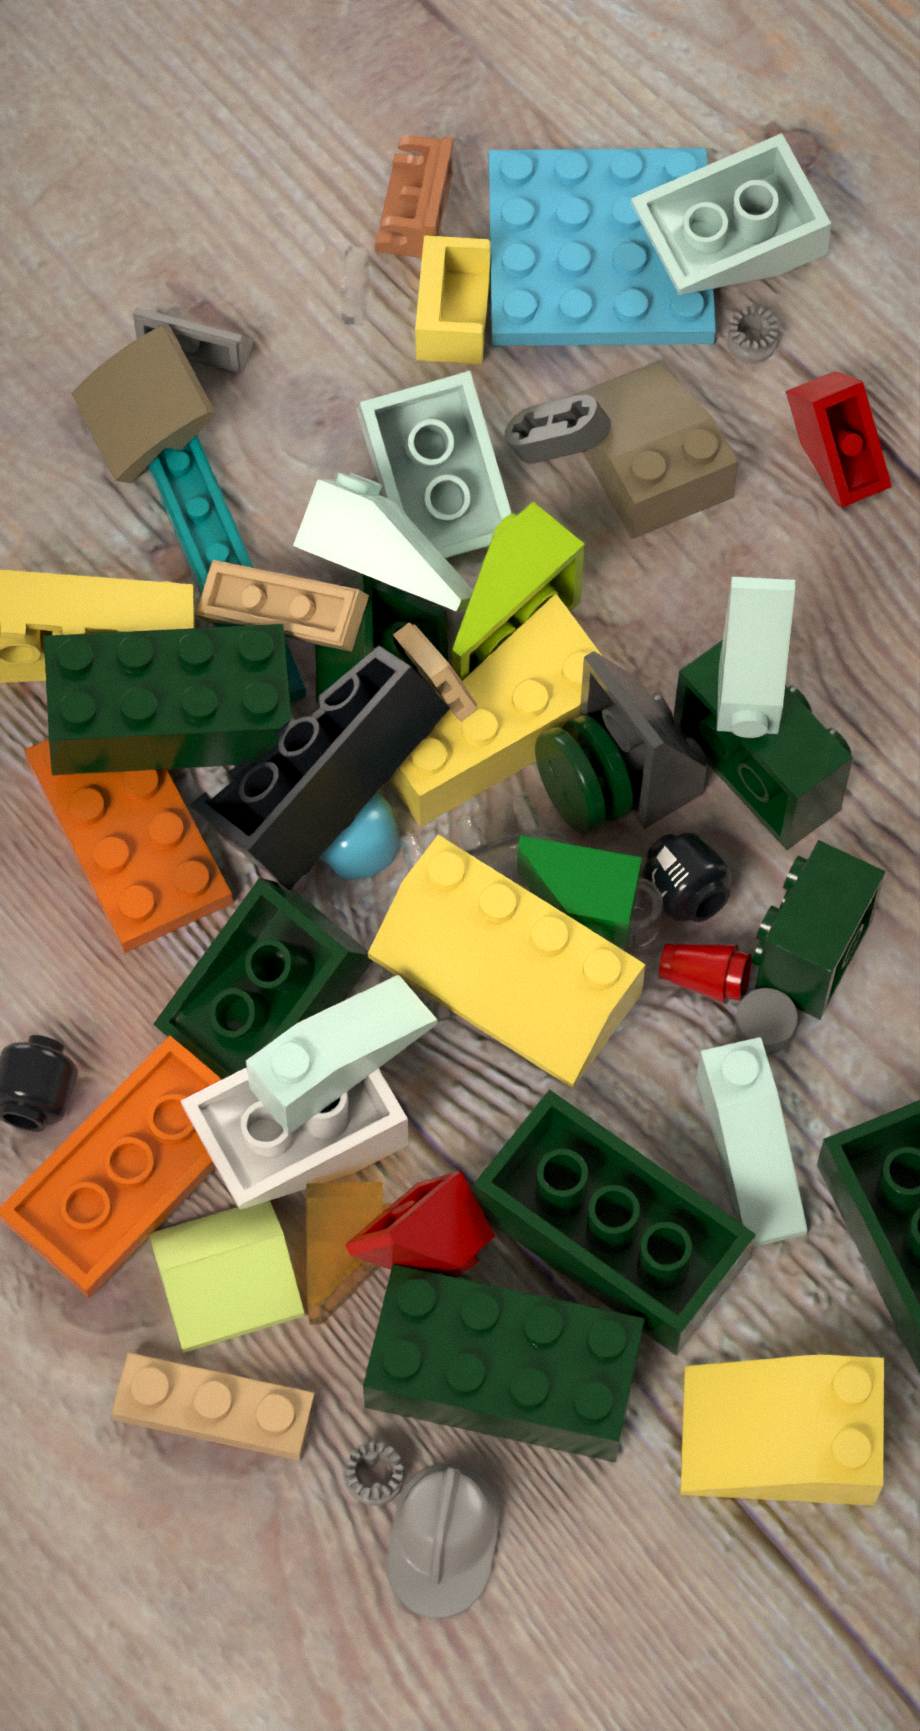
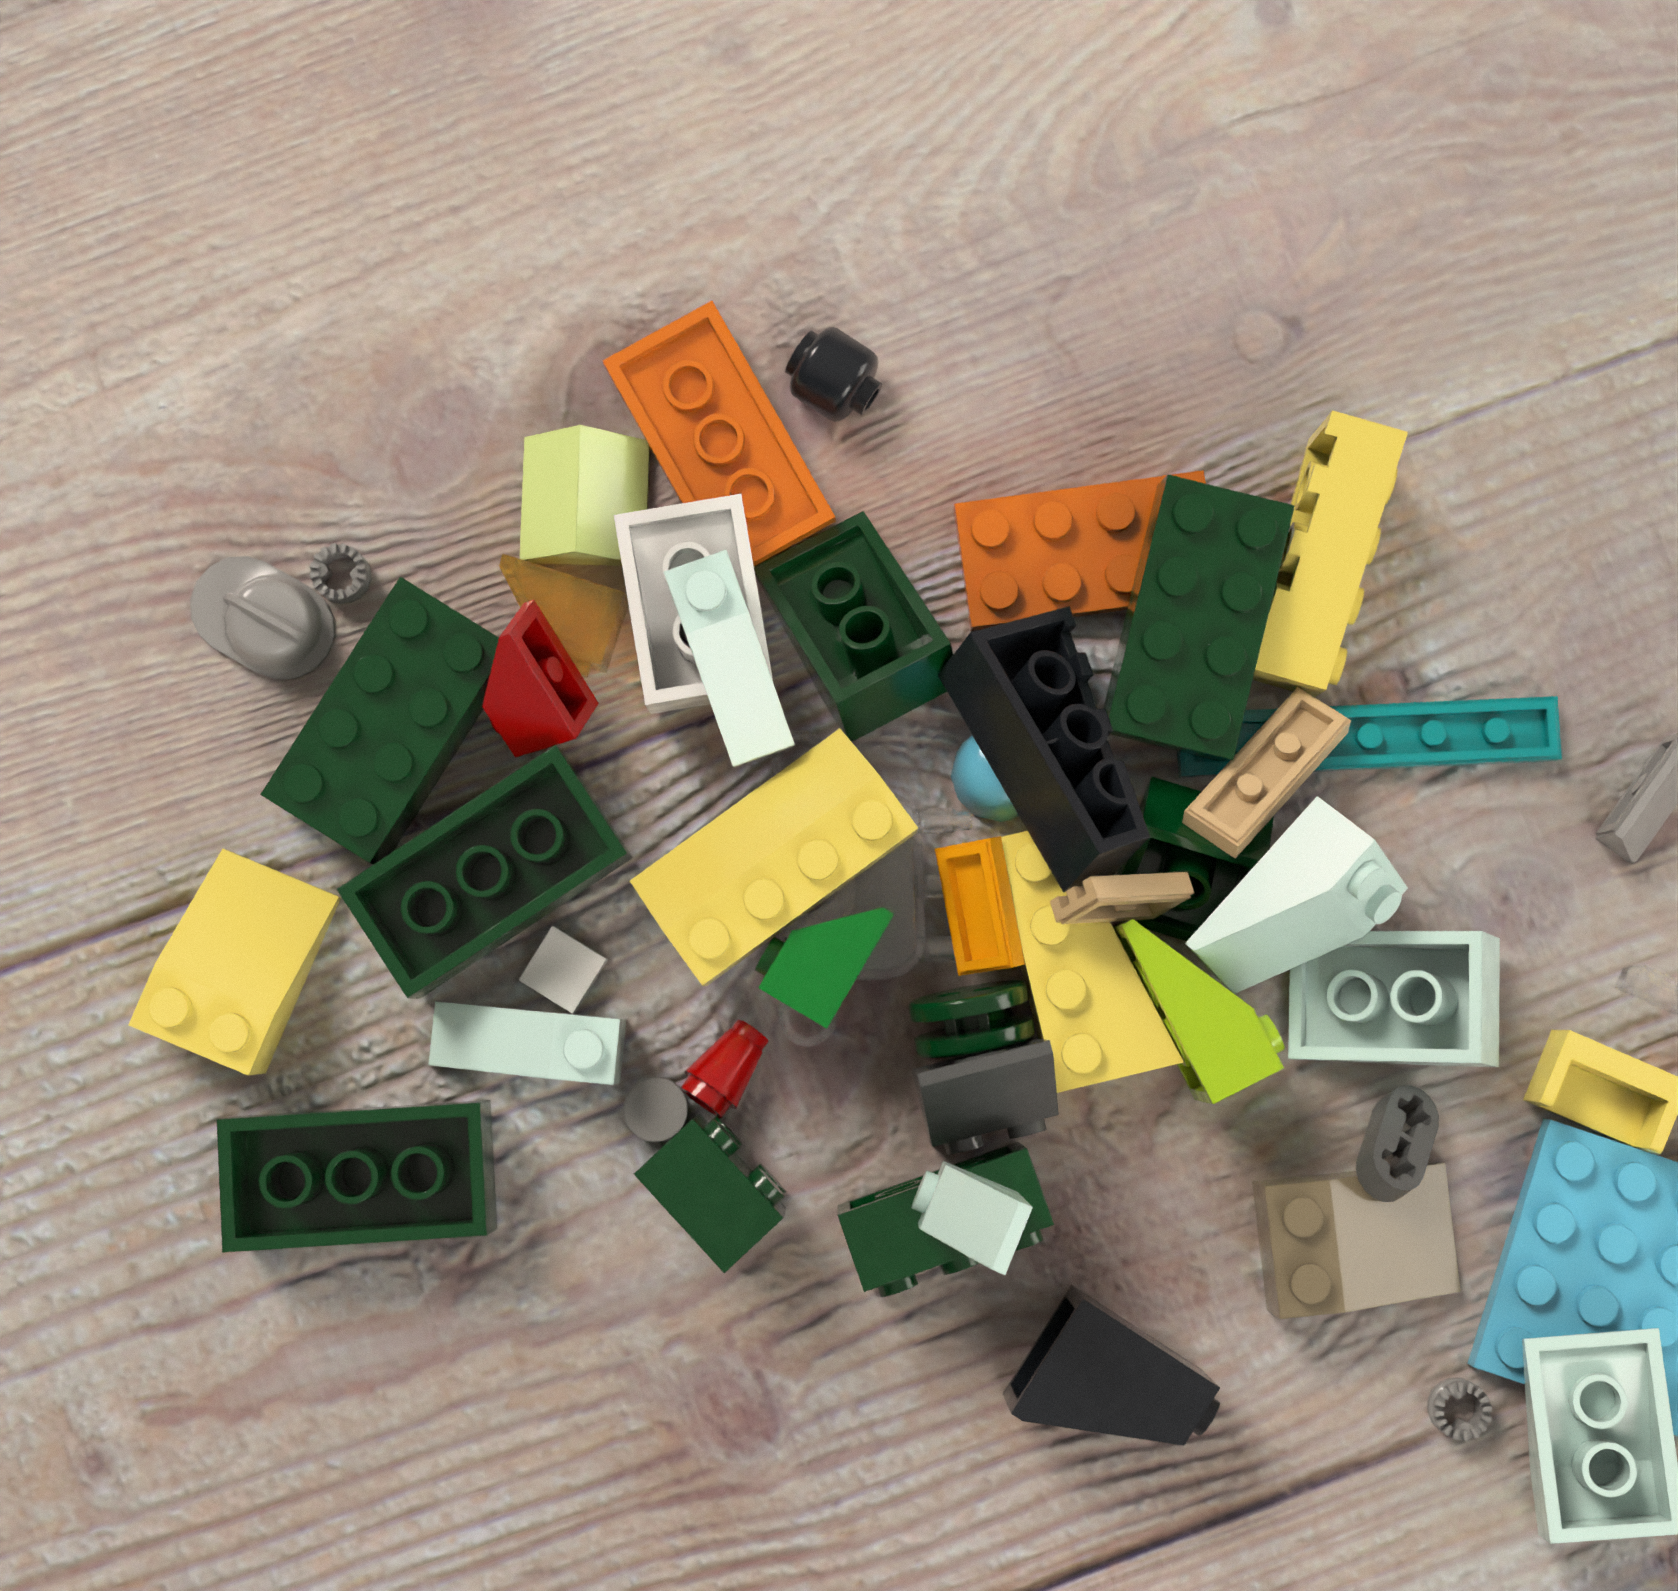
camera: 110 degrees right, 20 degrees up
(143, 403) = (1576, 711): dark tan slope -> none
(213, 1406) = (458, 449): tan plate -> none
(484, 791) = (979, 906): none -> light orange tile
(675, 1139) = (563, 969): none -> white tile
(689, 876) = (828, 1084): black head -> none
(840, 436) = (1293, 1451): red slope -> none
(845, 577) = (1109, 1378): none -> black slope

